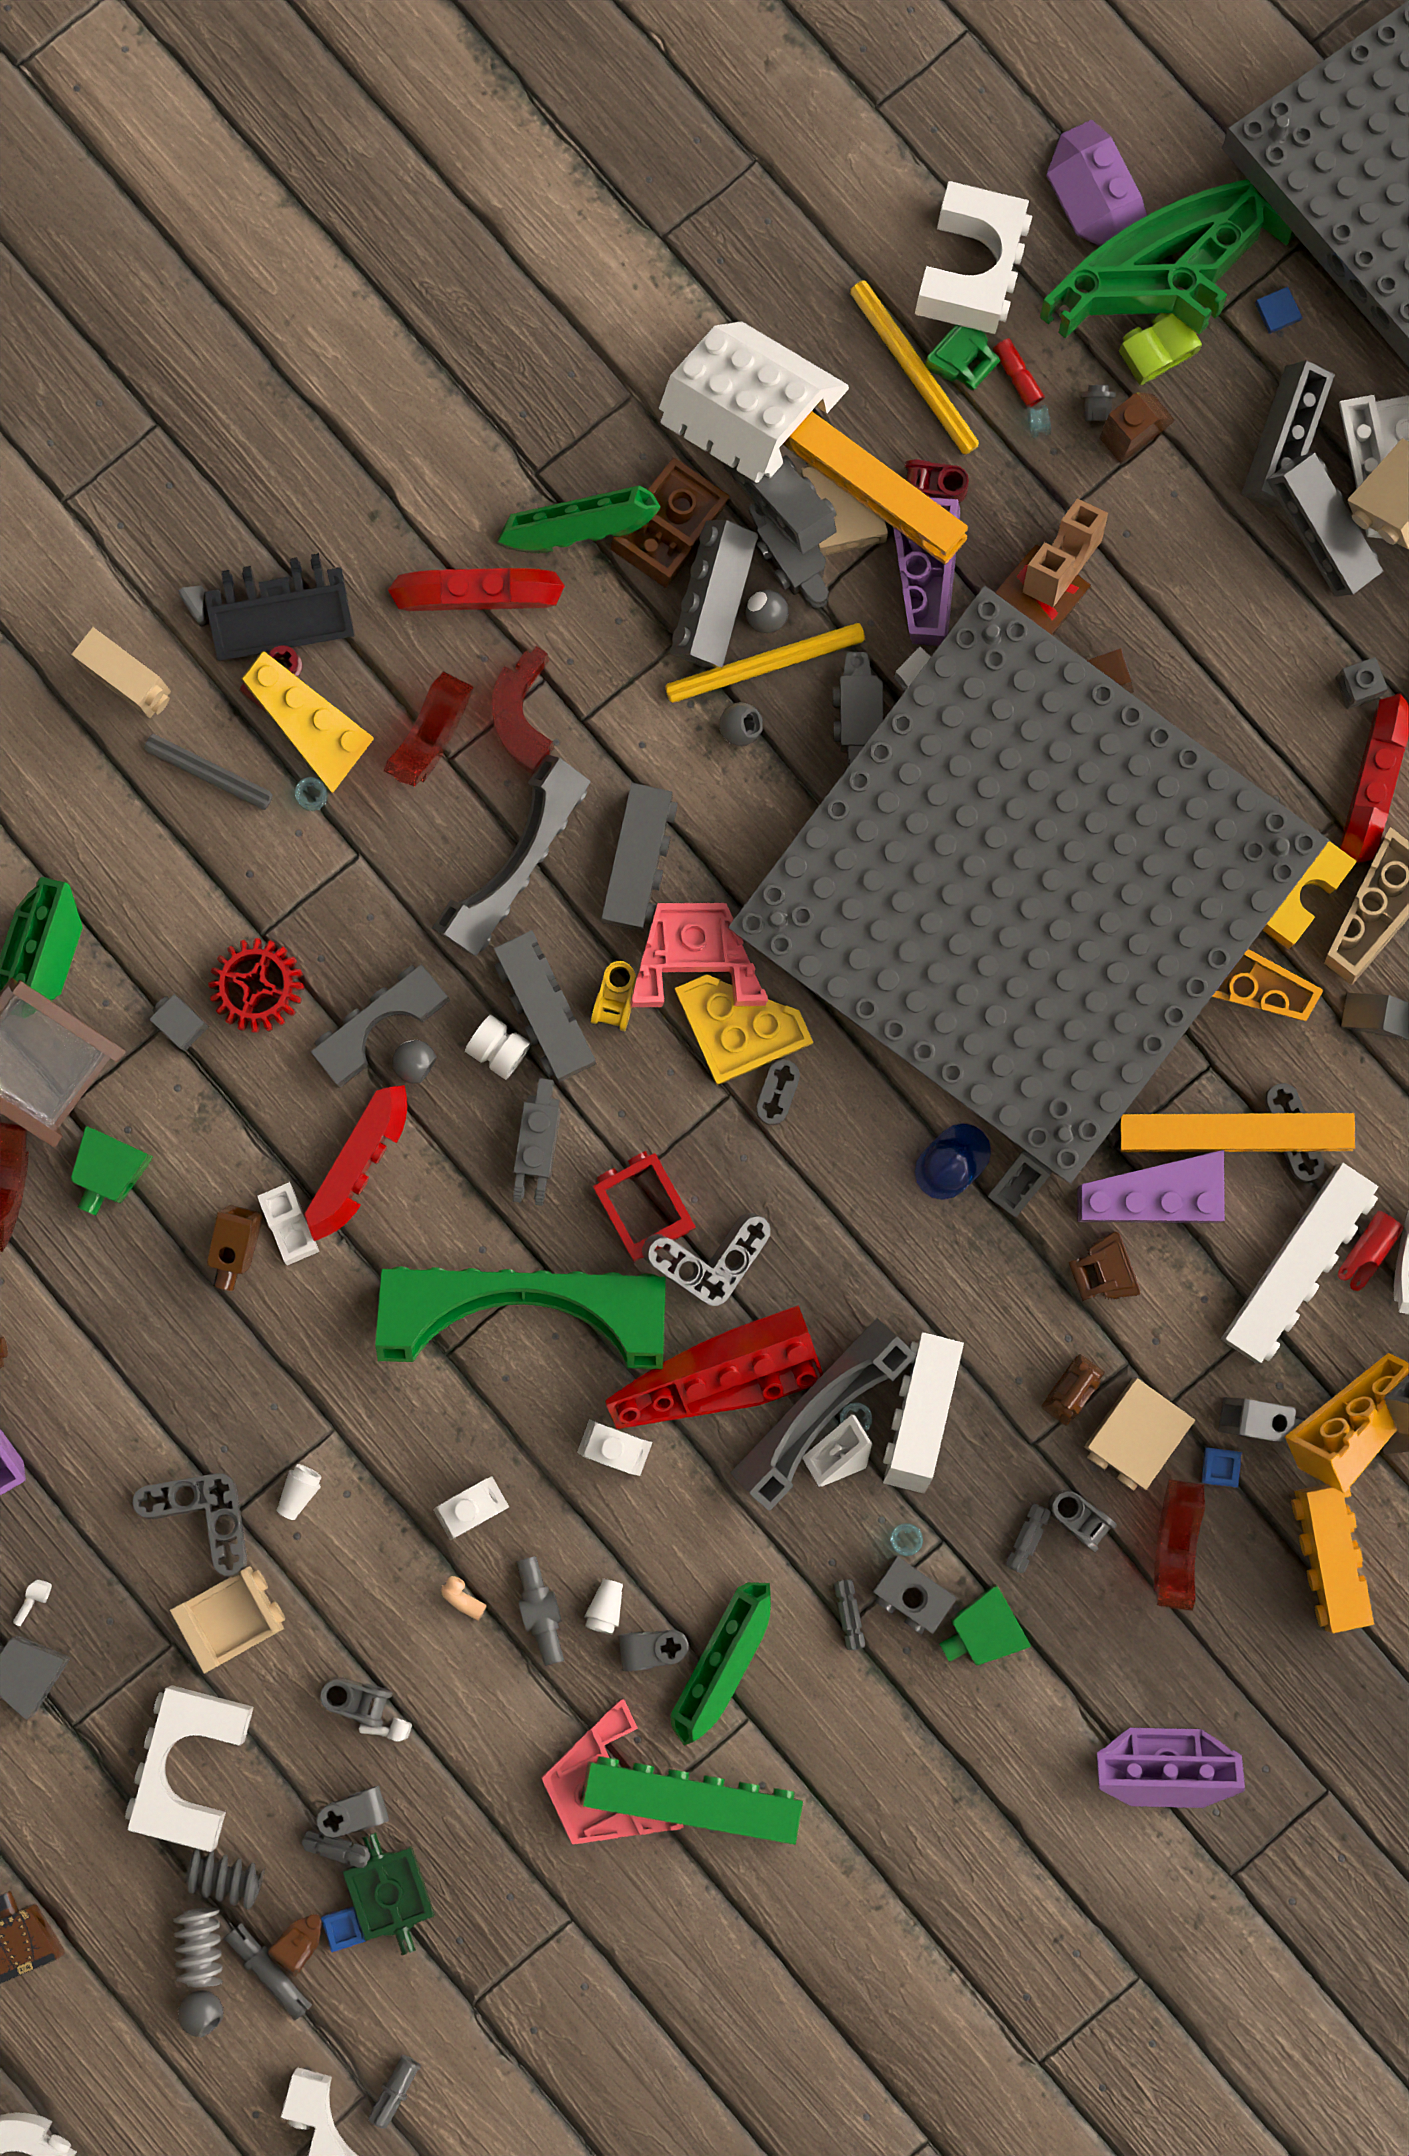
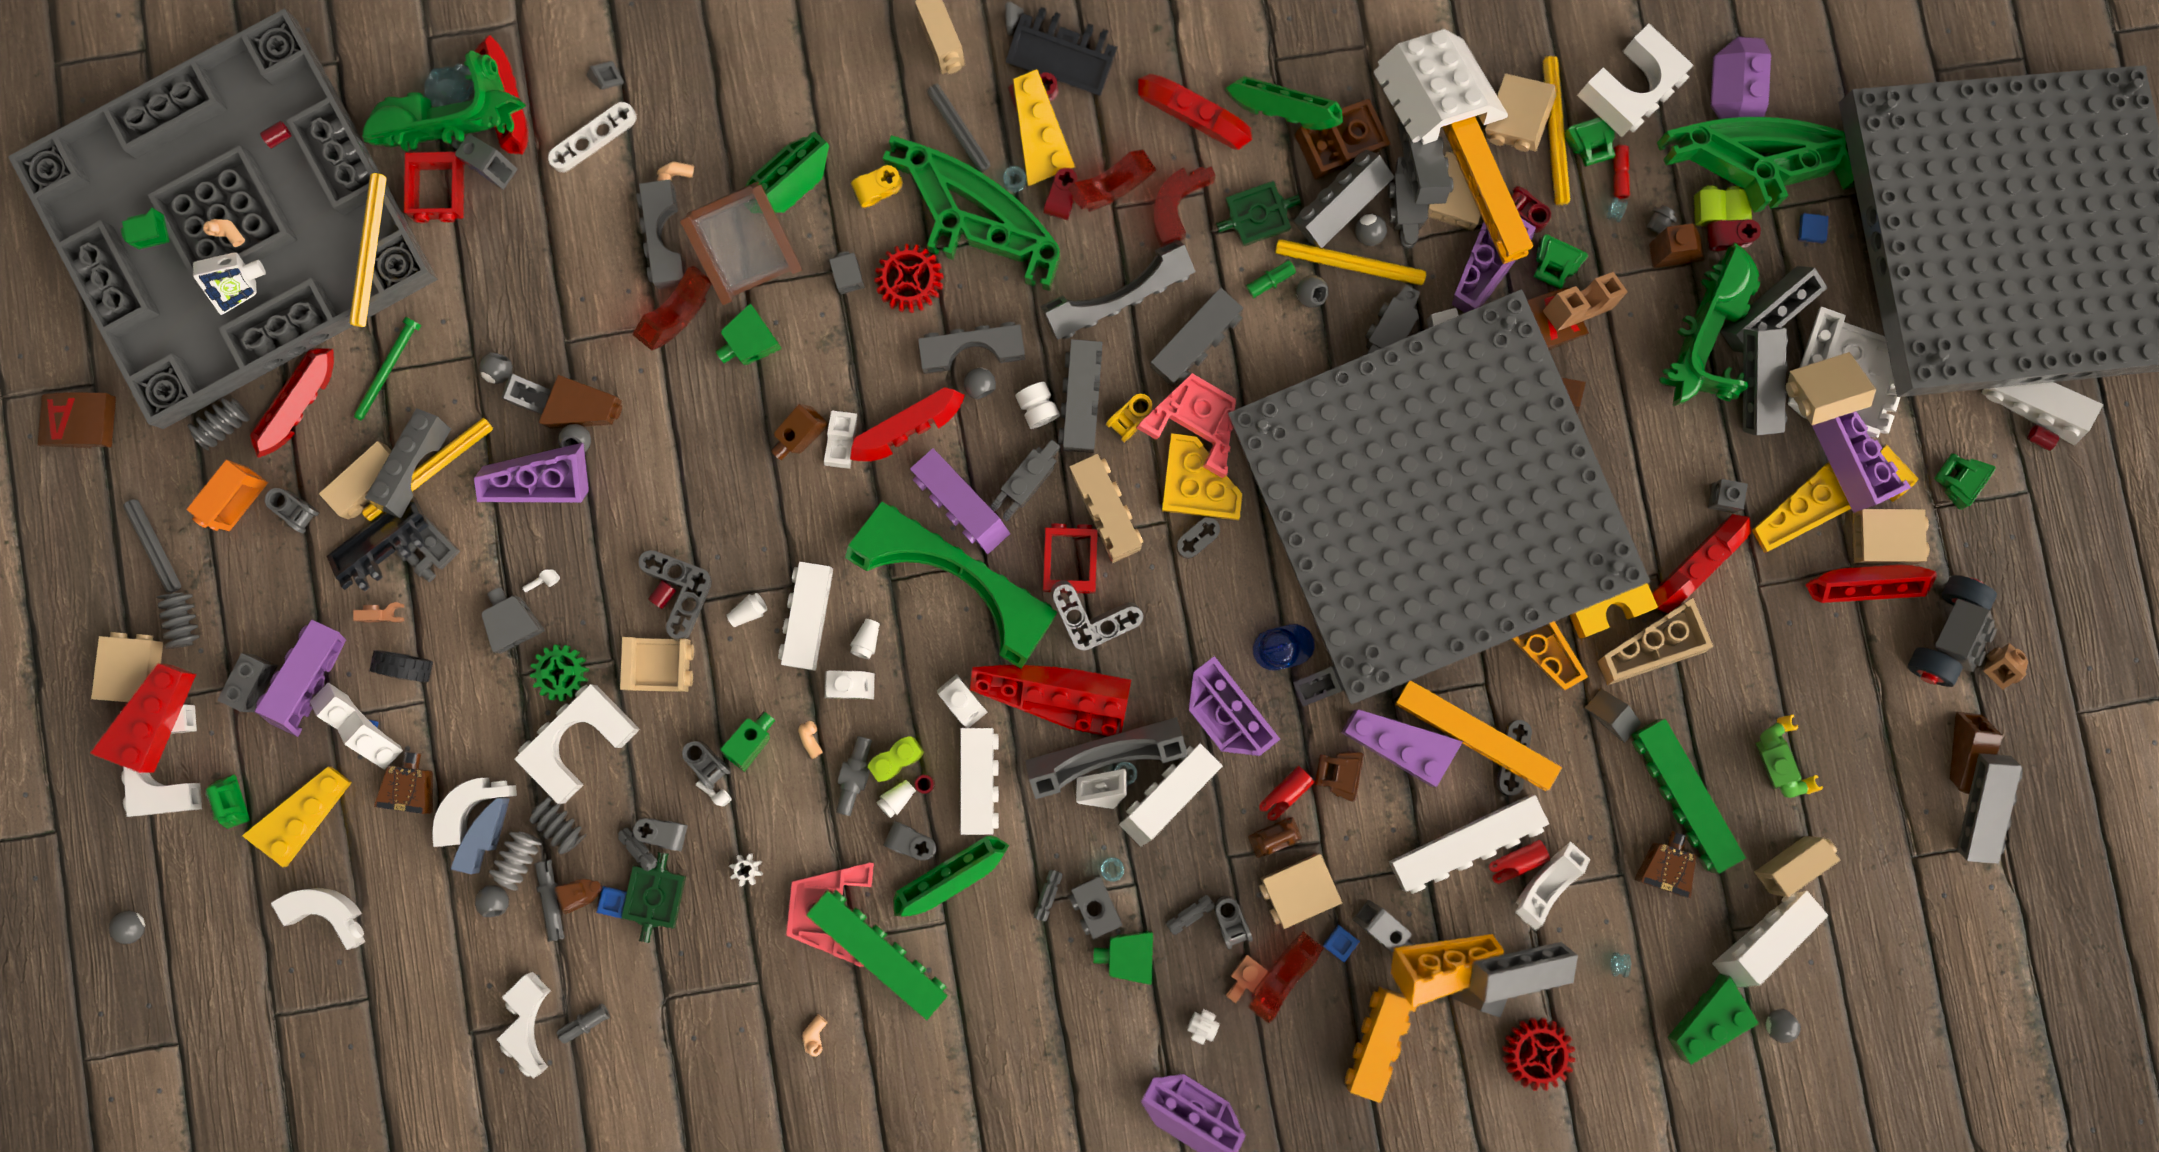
camera: 30 degrees right, 0 degrees up
(91, 1932) = (453, 812): none -> white arch
(128, 1709) = (558, 662): none -> green gear
(141, 1946) = (480, 837): none -> sand blue slope
(150, 900) = (874, 186): none -> yellow piece
(185, 1532) = (662, 594): none -> dark red hinge
(220, 837) = (942, 173): none -> green piece
(372, 1455) = (806, 616): none -> white brick
(379, 787) = (1060, 199): none -> dark red piece
(392, 1660) = (743, 751): none -> green torso
(458, 1442) = (865, 640): none -> white cone
(468, 1797) = (739, 866): none -> white gear
(472, 1213) = (960, 501): none -> medium lavender wedge
(574, 1570) = (902, 754): none -> lime brick
(622, 1578) = (917, 782): none -> dark red hinge
(623, 668) = (1258, 213): none -> dark green plate
(650, 1121) = (1105, 507): none -> tan wedge
(671, 1945) = (811, 1036): none -> light nougat arm
(684, 737) = (1271, 279): none -> green axle
(689, 1531) = (978, 781): none -> white brick
(868, 364) = (1528, 110): none -> tan brick
(933, 1277) = (1227, 712): none -> medium lavender wedge
(1005, 516) = (1558, 257): none -> green piece
(1056, 1330) = (1287, 793): none -> red piece
(1119, 1659) = (1203, 1026): none -> white gear
(1135, 1569) = (1248, 976): none -> nougat plate
(1185, 376) = (1724, 233): none -> dark red piece
(1226, 451) = (1724, 298): none -> green piece

